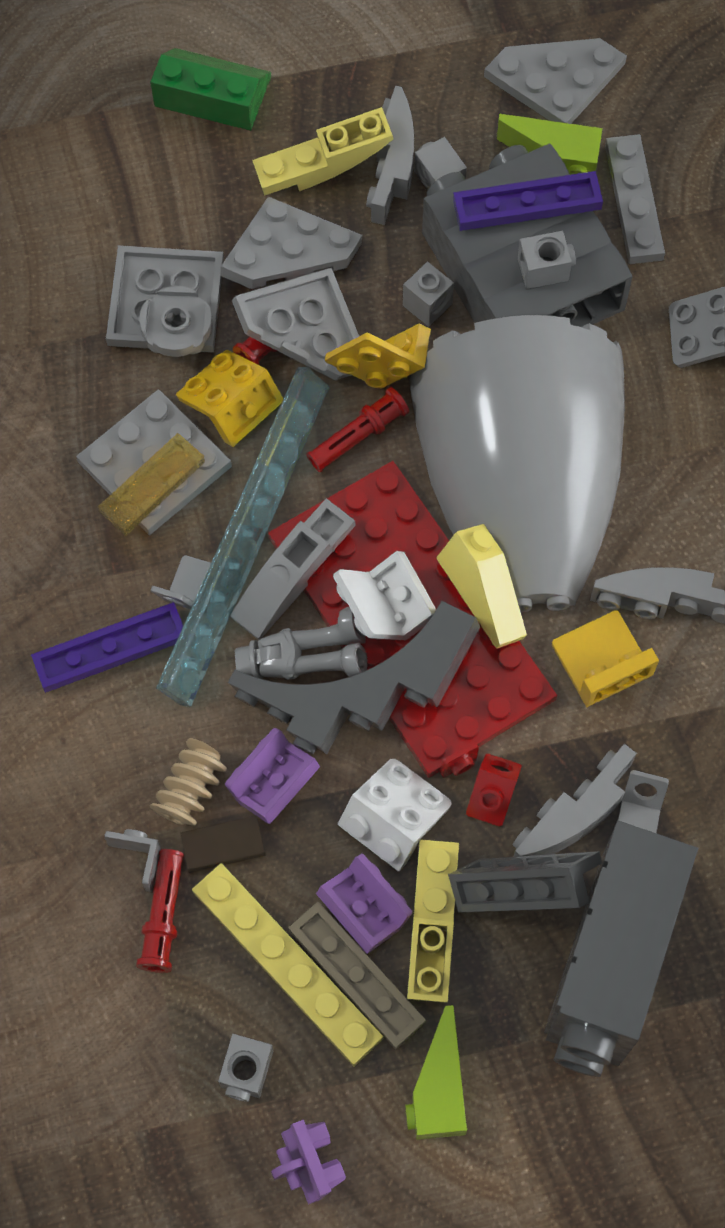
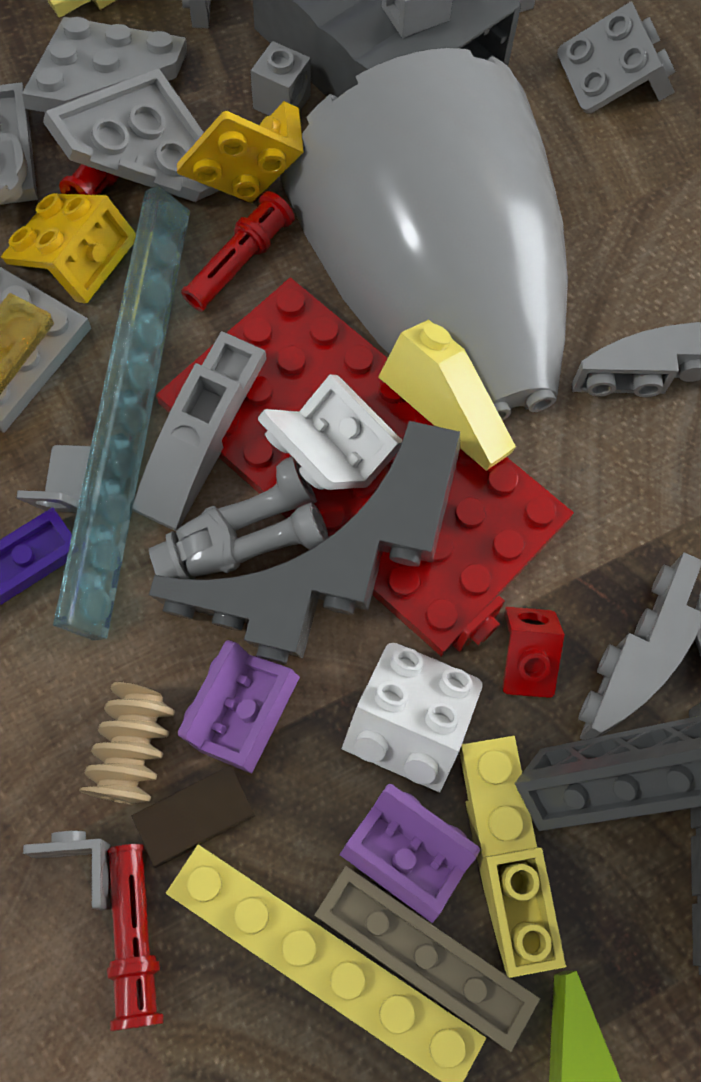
camera: 20 degrees left, 0 degrees up
(603, 658) = (616, 454): yellow bracket -> none

